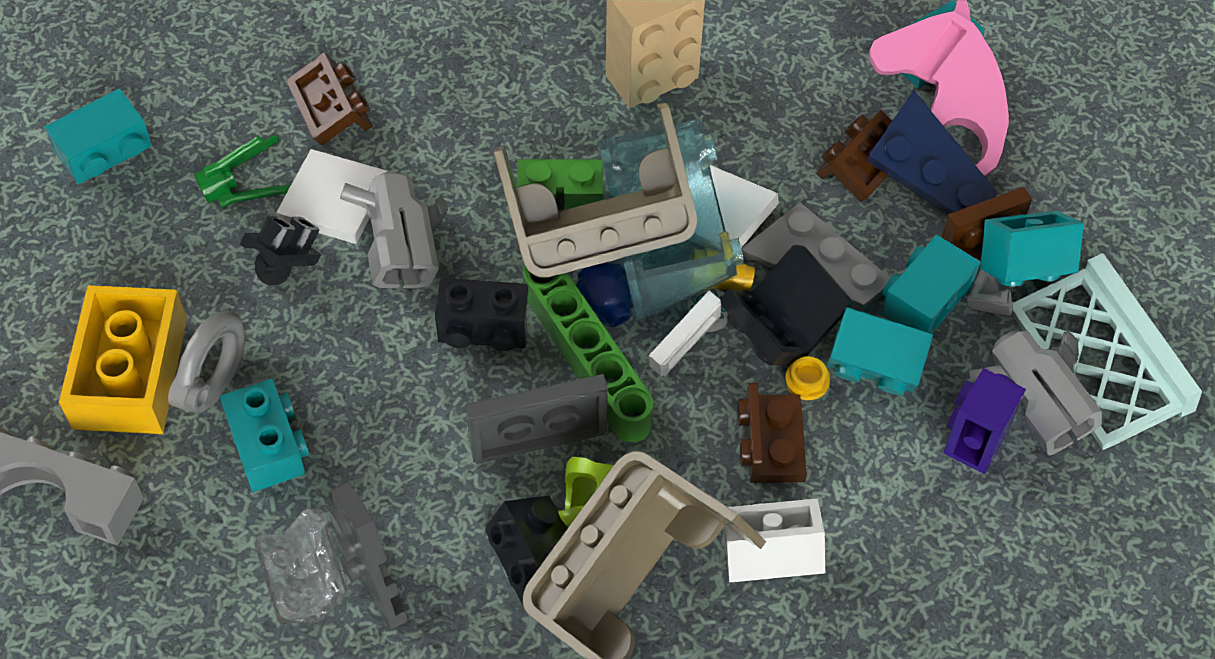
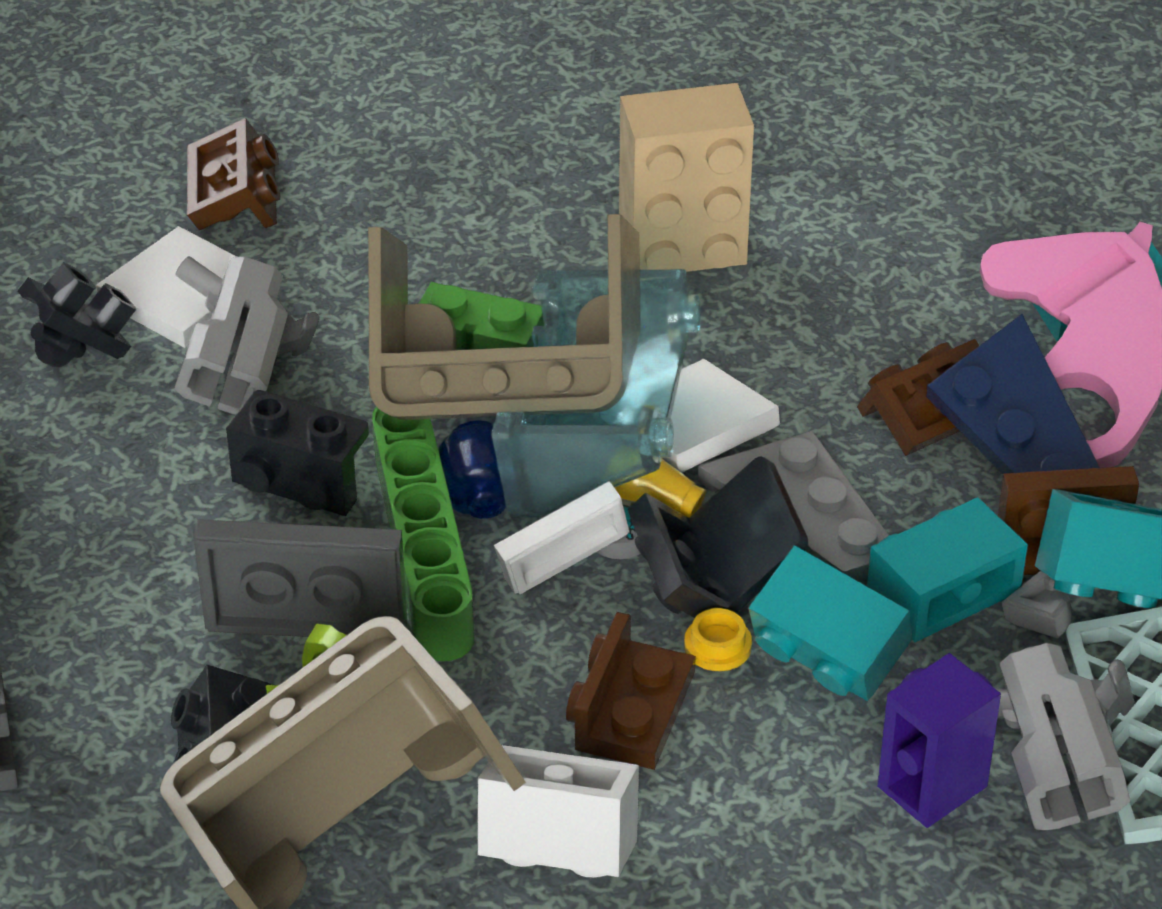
camera: 20 degrees right, 15 degrees down
(217, 178) = (39, 233): green plant -> none

